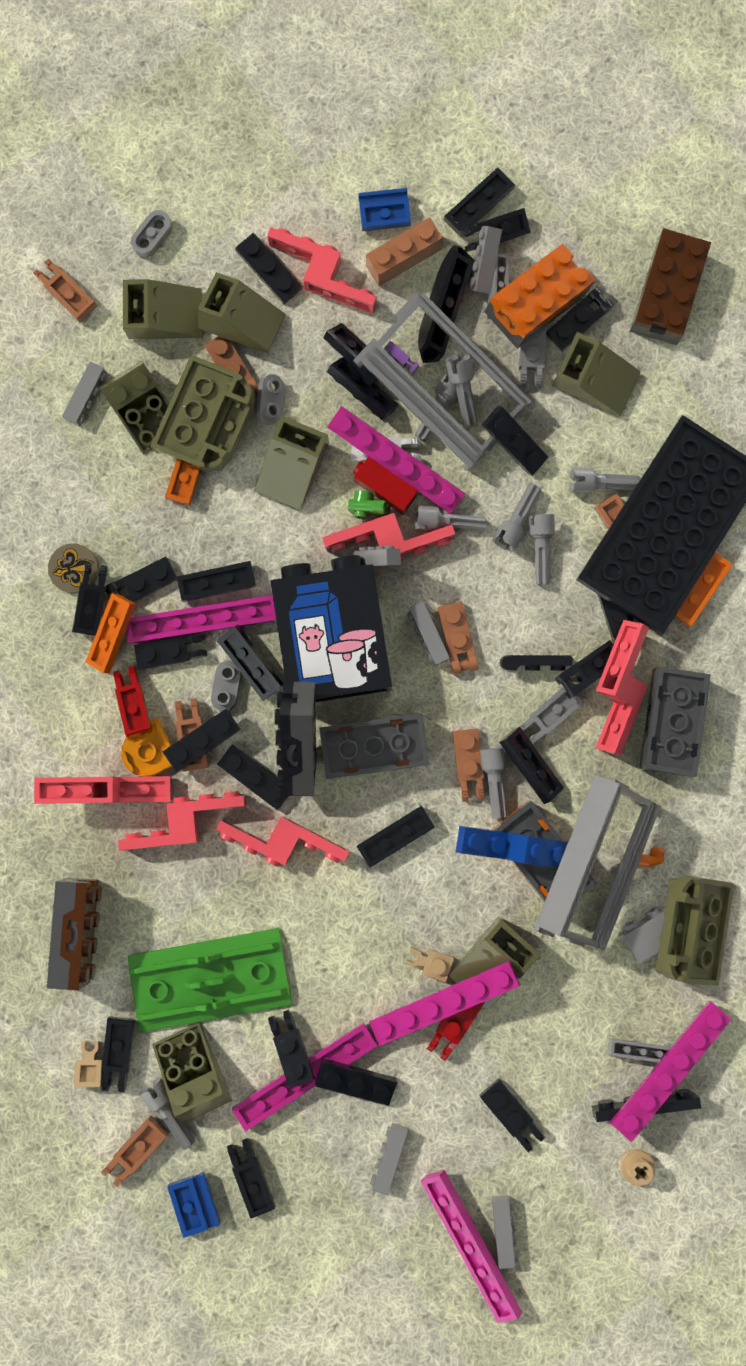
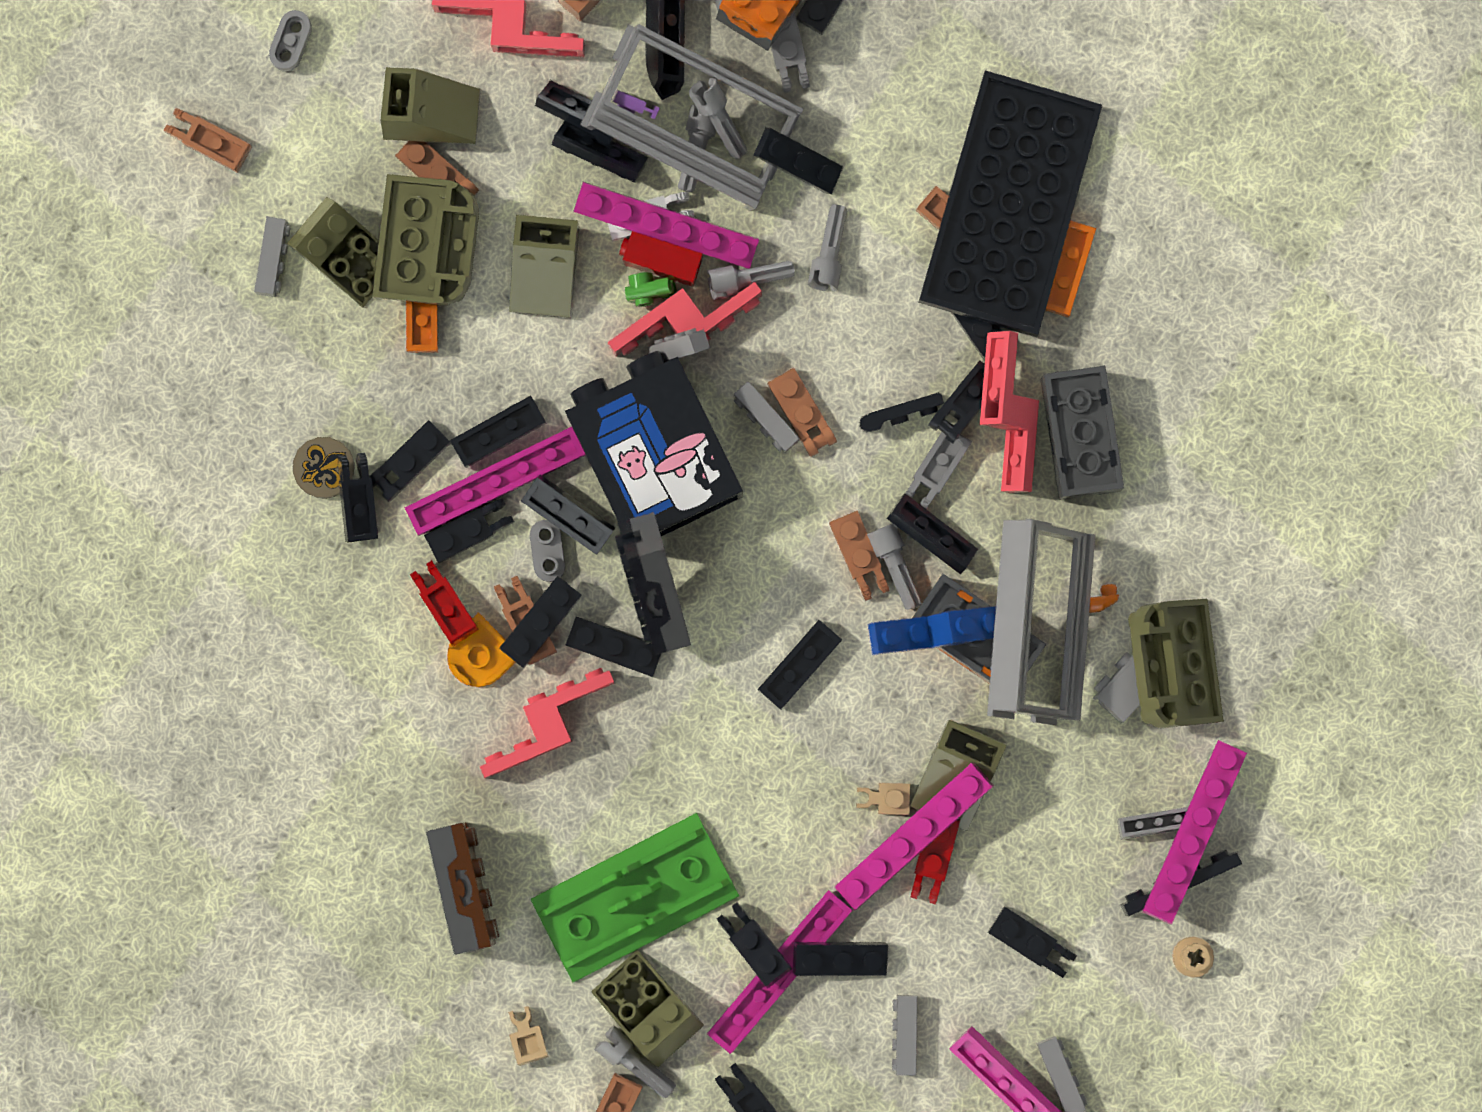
camera: 20 degrees left, 0 degrees up
(102, 789) = (444, 713): coral bracket -> none
(110, 633) = (394, 529): orange plate -> none
(117, 1051) = (553, 1010): black hinge -> none
(160, 310) = (333, 129): olive slope -> none
(268, 268) = (442, 40): black plate -> none
(271, 398) = (494, 196): light grey plate -> none
(282, 841) = (670, 710): coral bracket -> none
(374, 746) = (743, 567): dark grey piece -> none
(542, 529) = (862, 255): light grey piece -> none
(590, 481) = (901, 179): light grey piece -> none
(596, 375) = (871, 53): olive slope -> none

